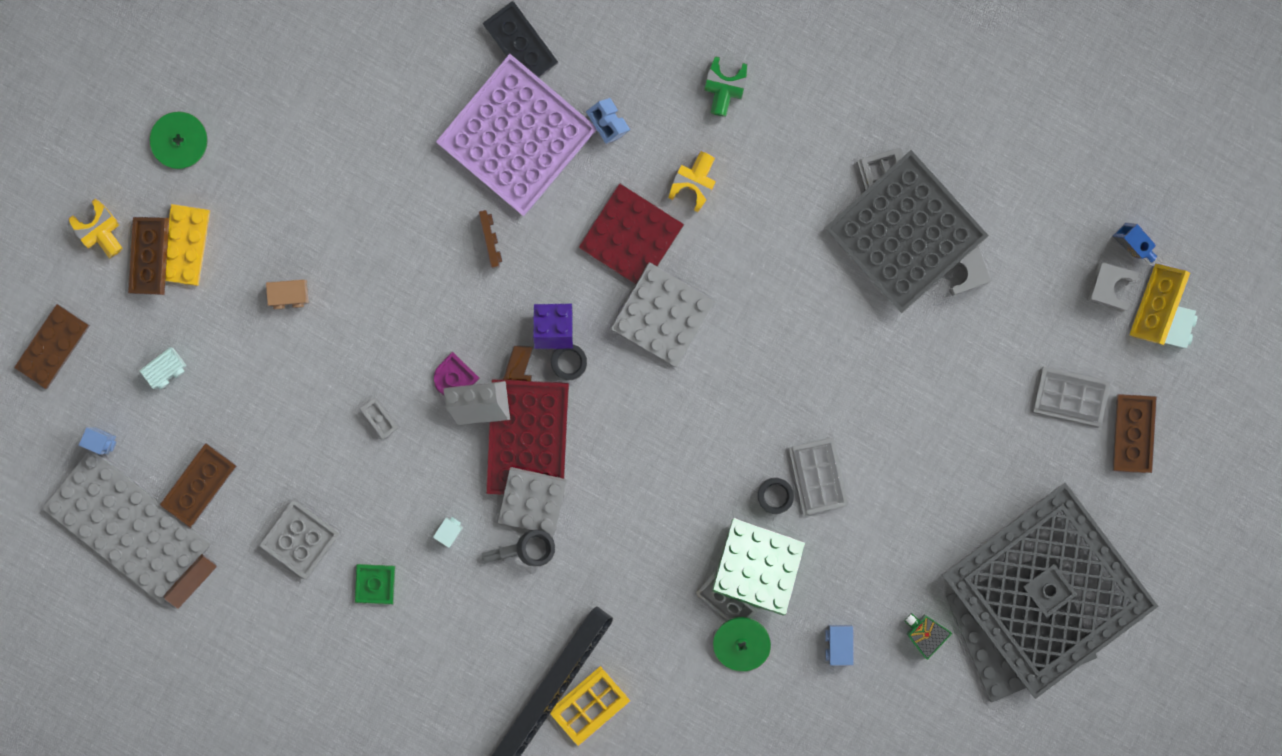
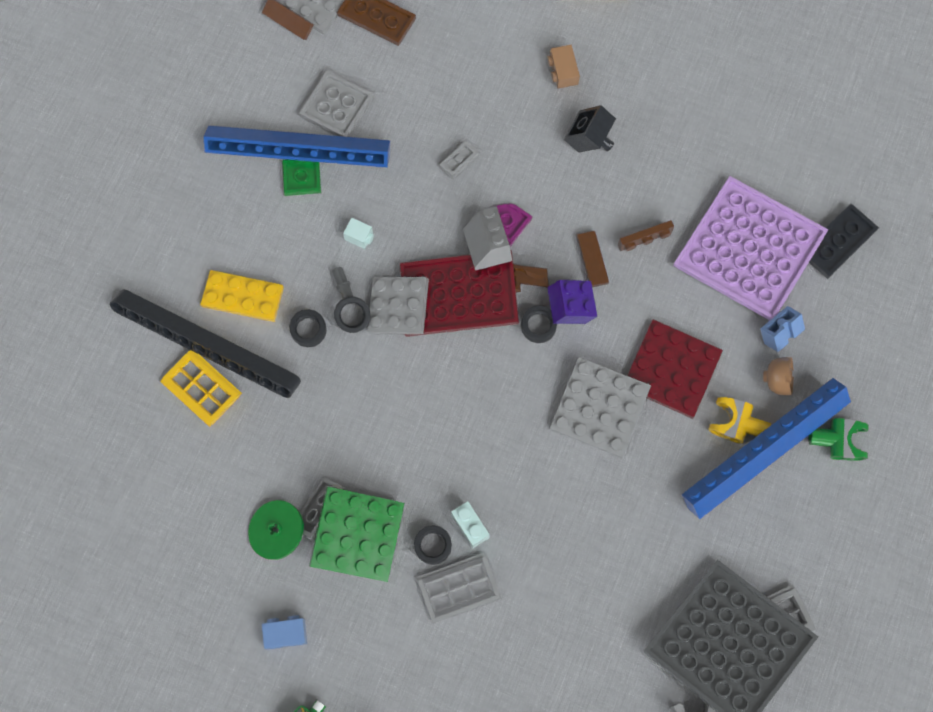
camera: 85 degrees right, 15 degrees down
(344, 585) = (297, 146): none -> blue brick
(368, 278) = (591, 130): none -> black brick
(498, 656) = (242, 296): none -> yellow plate
(506, 296) = (592, 258): none -> reddish brown tile
(541, 579) = (303, 314): none -> black tyre
(655, 132) = (780, 376): none -> medium nougat cylinder
(725, 160) = (766, 448): none -> blue brick
(761, 457) = (470, 524): none -> light aqua brick

